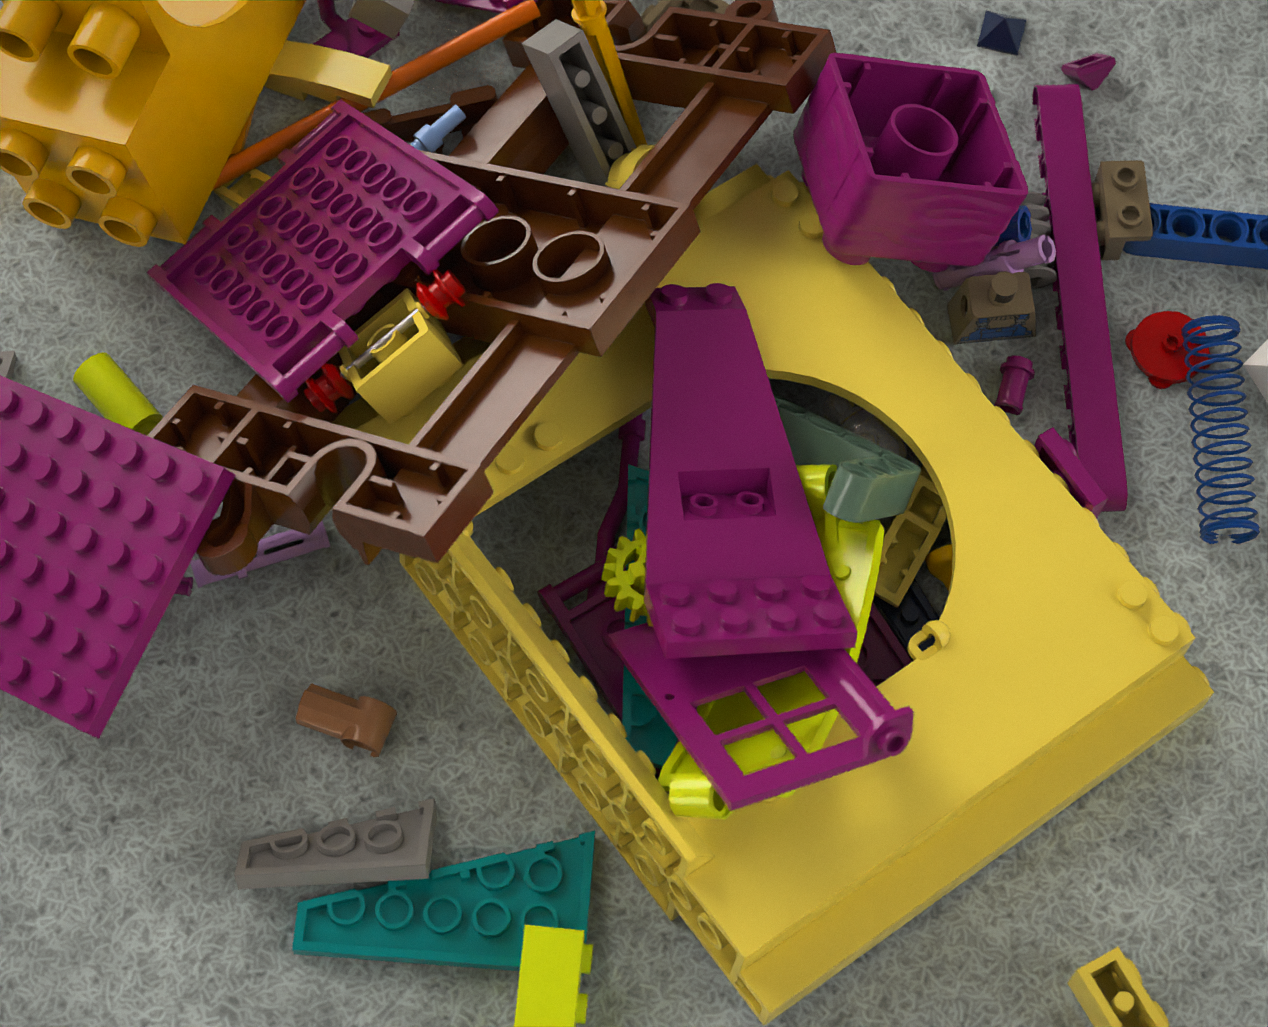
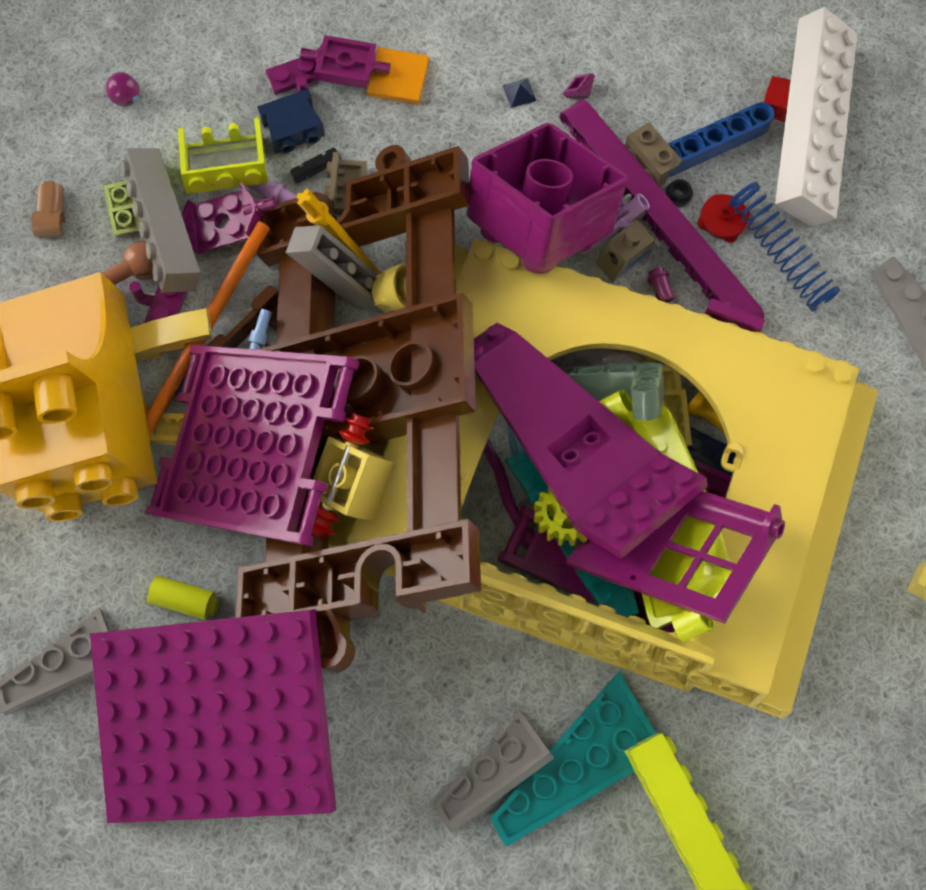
camera: 35 degrees left, 5 degrees up
(354, 721) = (447, 695): medium nougat piece -> none
(1133, 270) = (683, 186): none -> black plate

